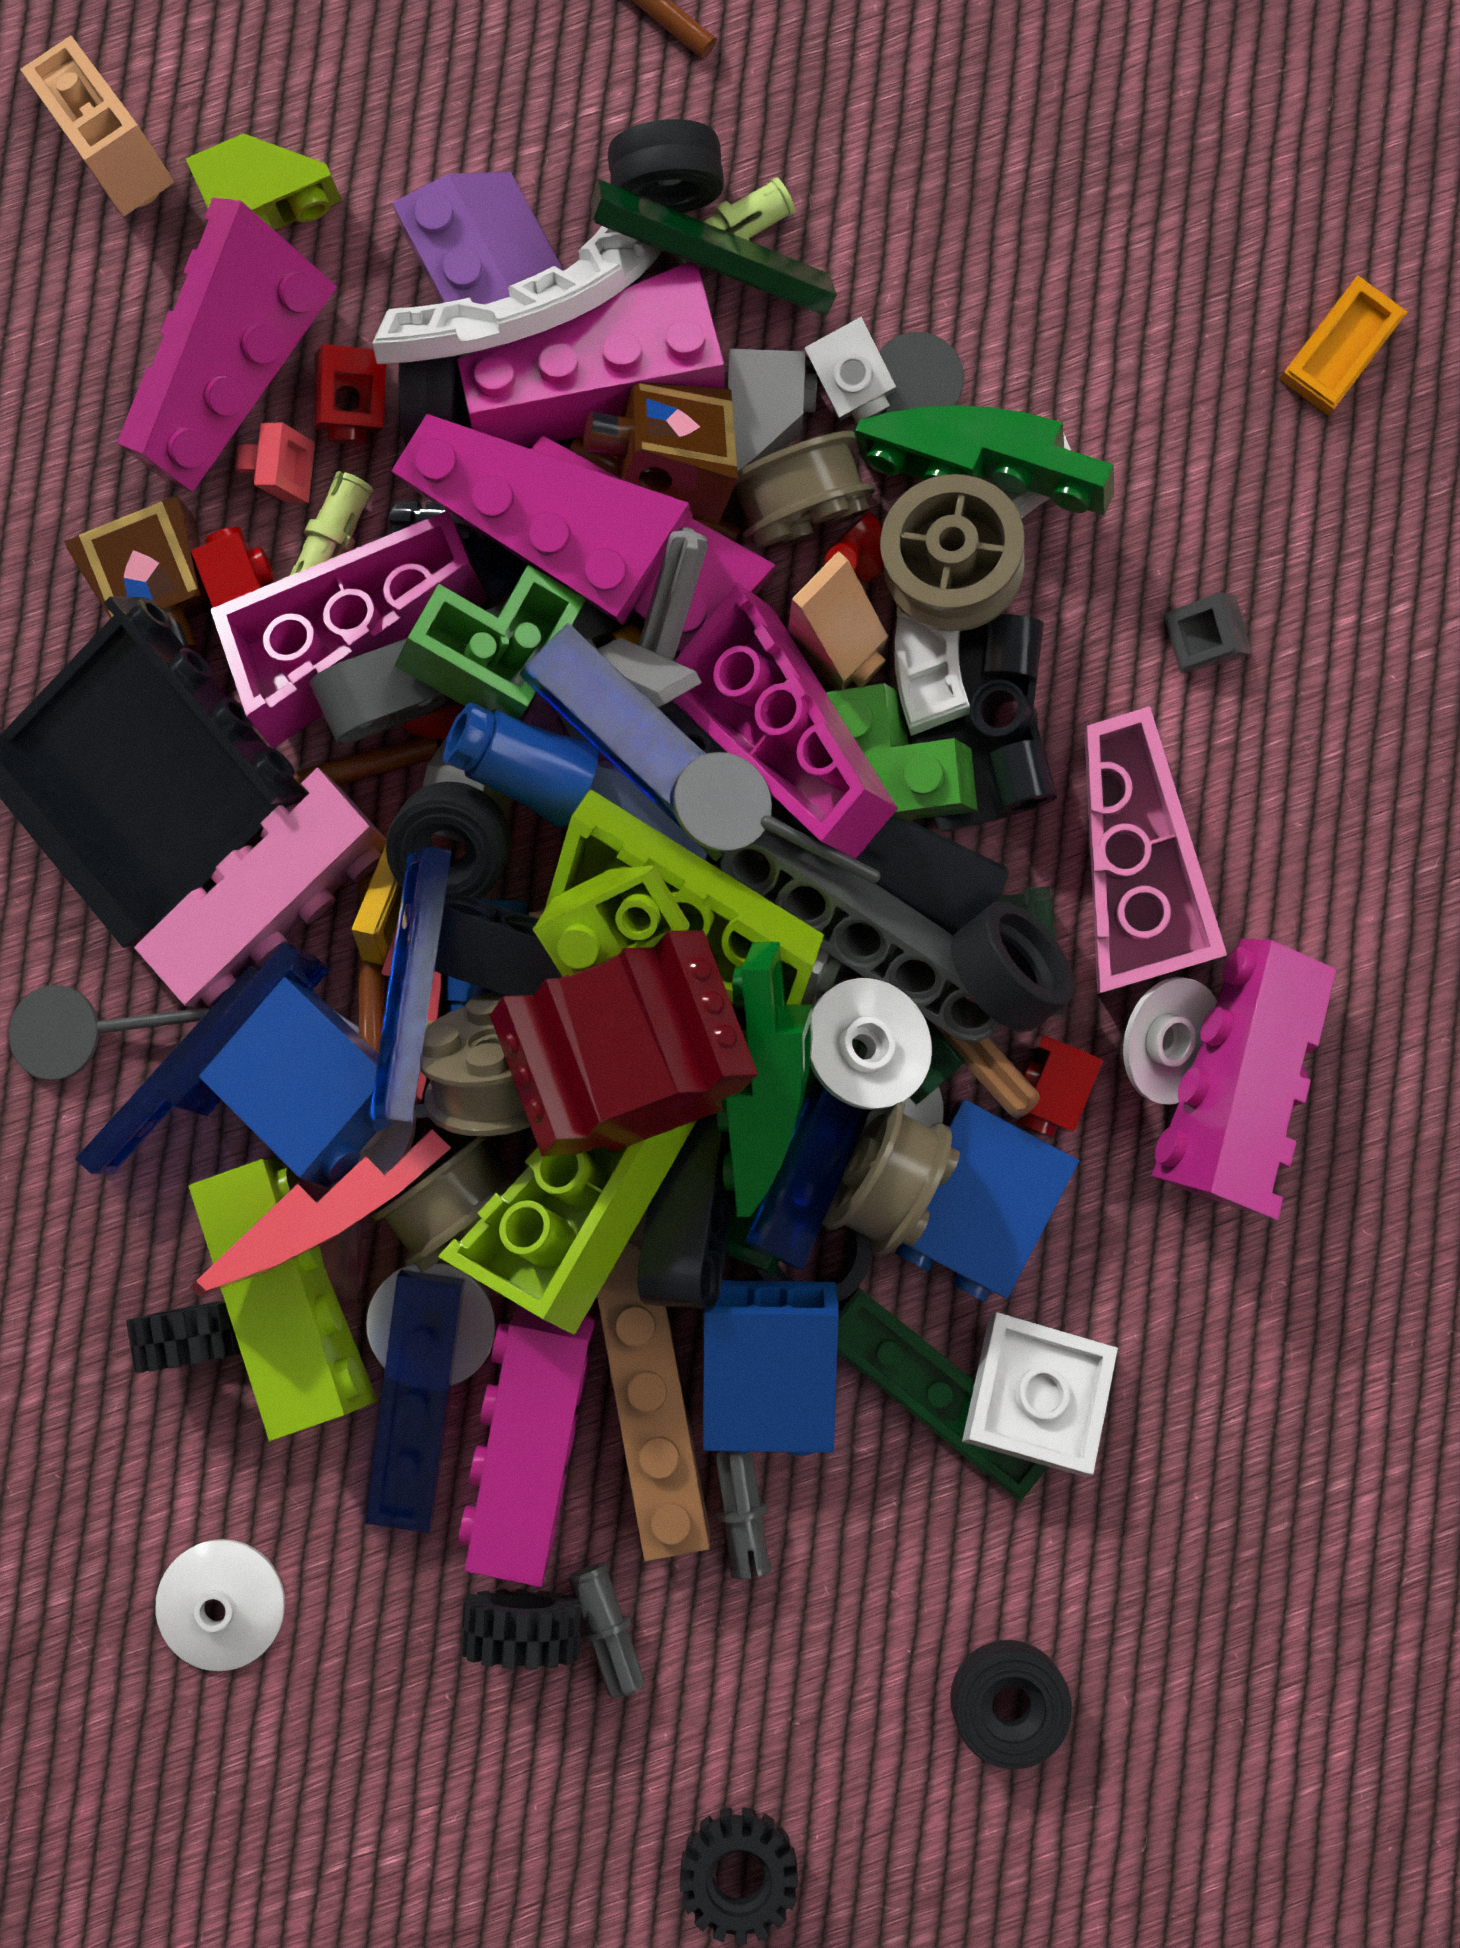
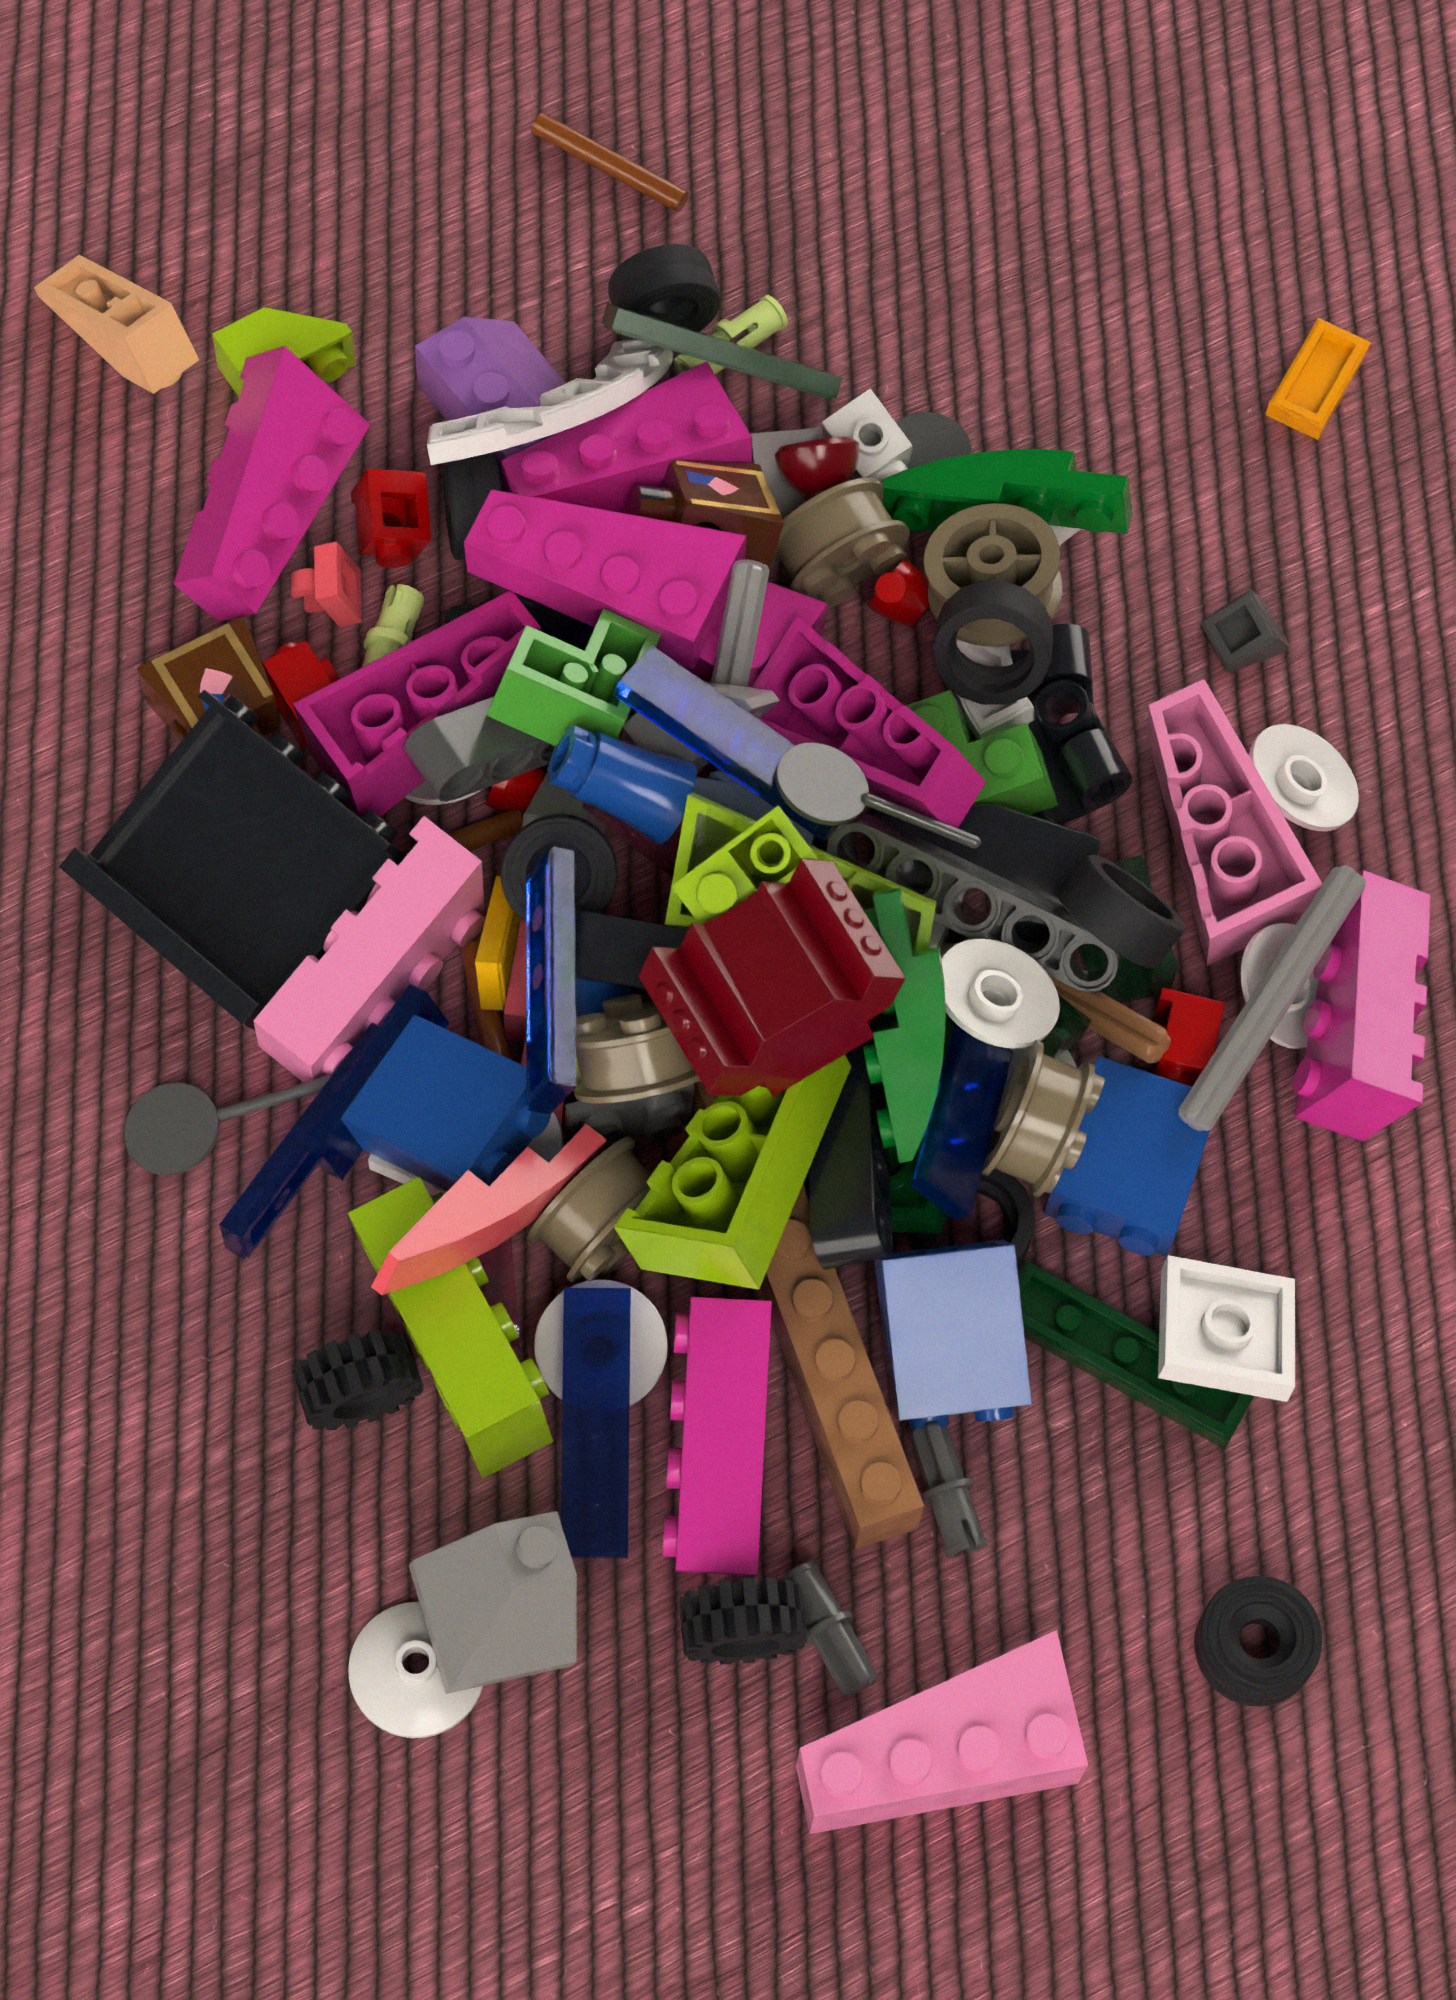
camera: 15 degrees left, 20 degrees down
(295, 1570) = (500, 1602): none -> light grey slope
(698, 1771) = (954, 1745): none -> bright pink wedge
(731, 1914) = (1040, 1826): black tyre -> none
(790, 405) = (817, 464): none -> dark red brick
(837, 626) = (895, 637): light nougat slope -> none
(941, 610) = (992, 601): none -> black tyre
(1151, 1070) = (1271, 998): none -> light grey axle
(1234, 813) = (1305, 777): none -> white dish

